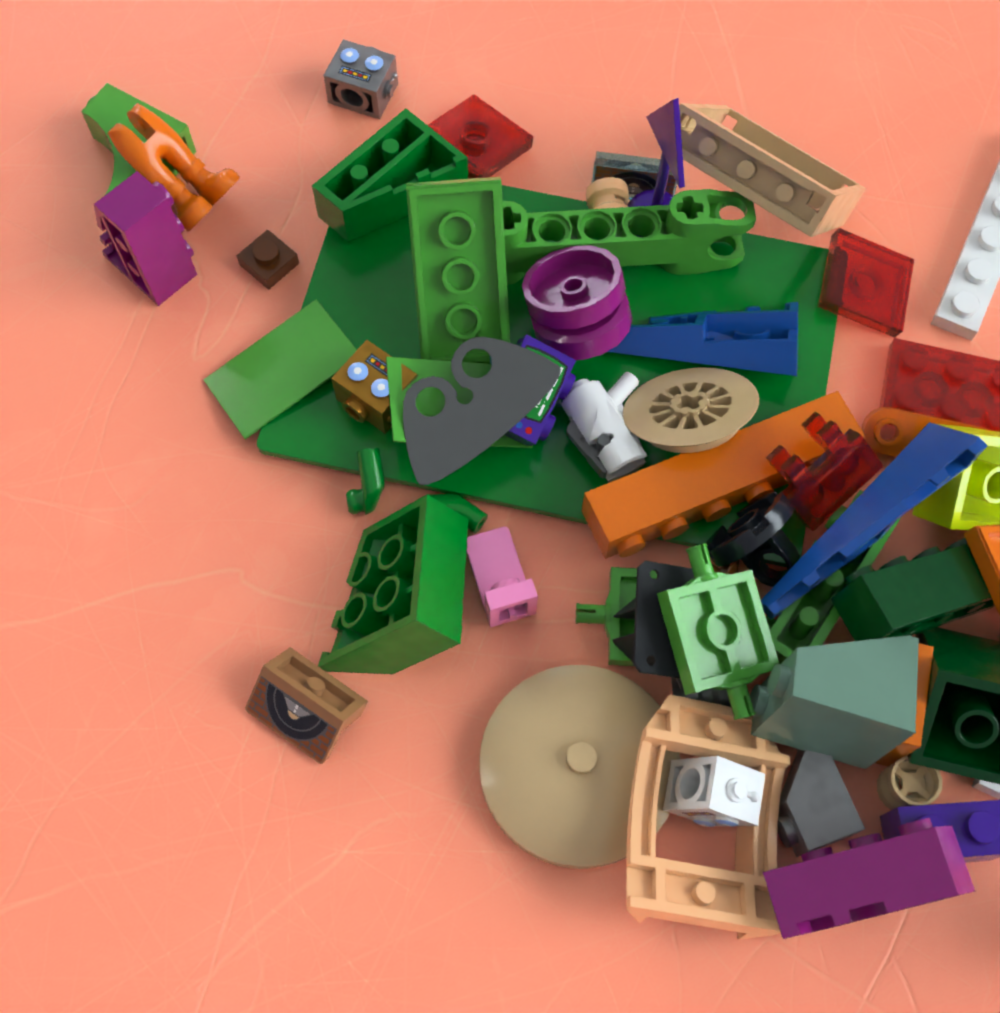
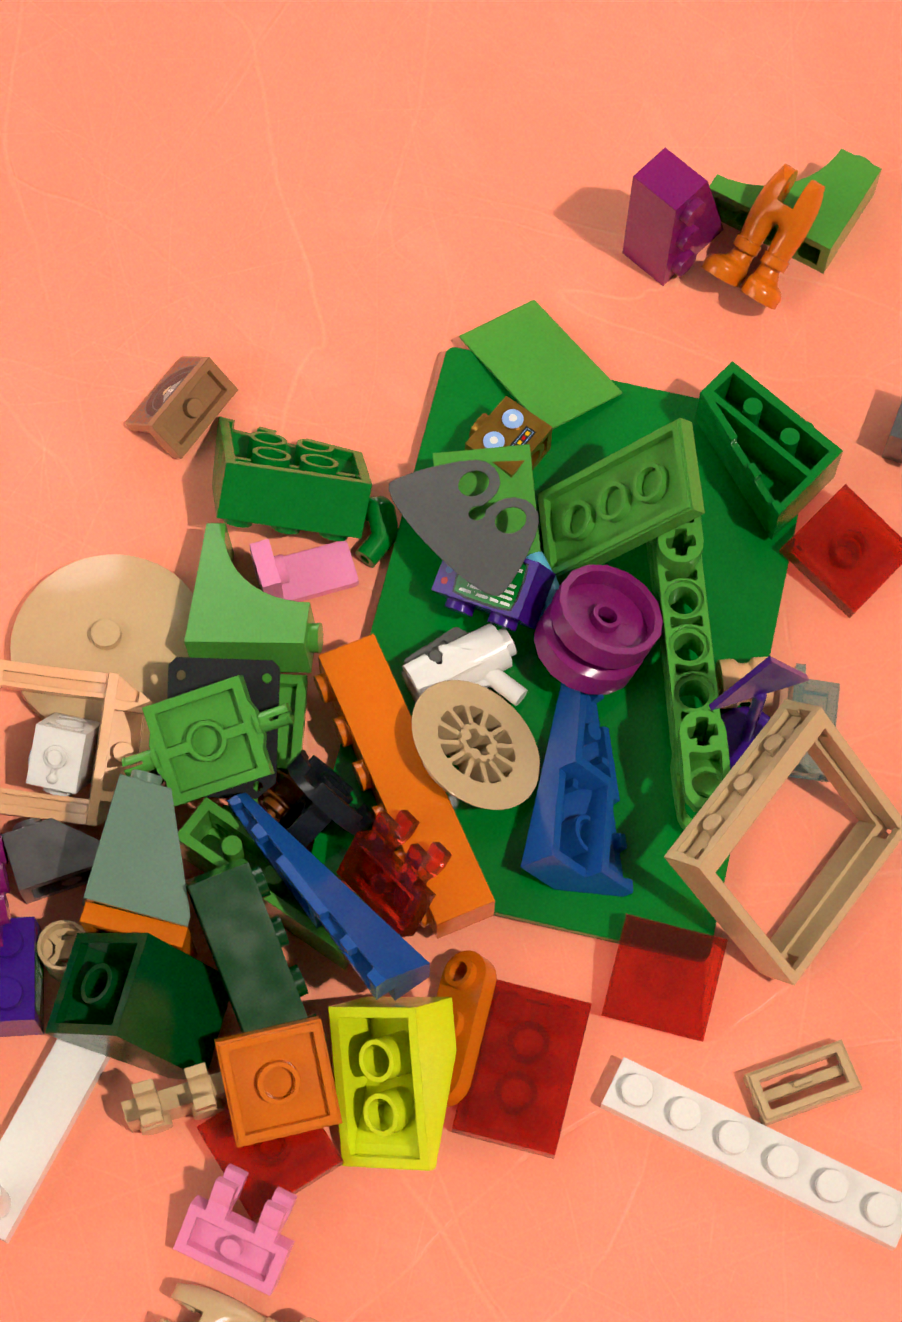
camera: 90 degrees right, 0 degrees up
(268, 259) = (679, 349): reddish brown plate -> none
(371, 482) = (396, 449): green arm -> none
(569, 625) = (241, 621): none -> bright green arch
(926, 198) = (762, 1098): none -> tan tile

